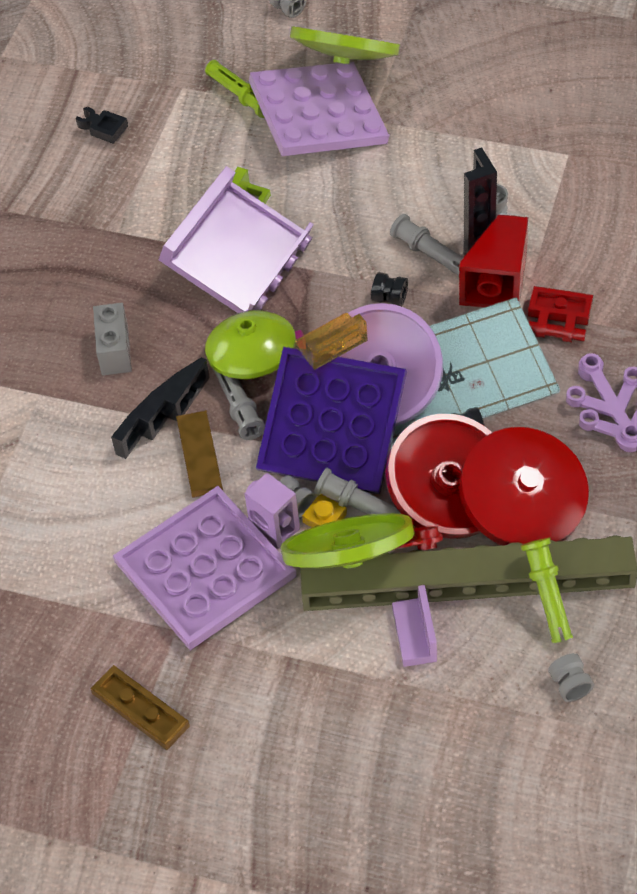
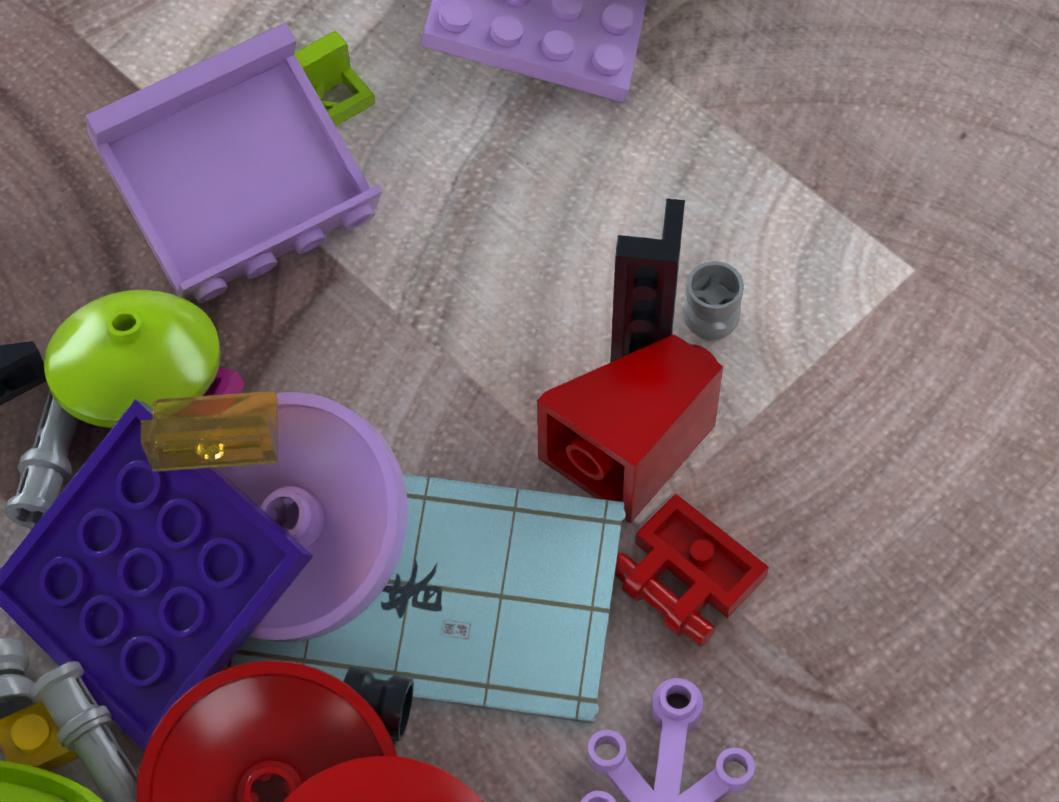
camera: 25 degrees right, 5 degrees up
(389, 289) = (432, 373): black wheel -> none
(420, 239) = (548, 305): light grey pin -> none

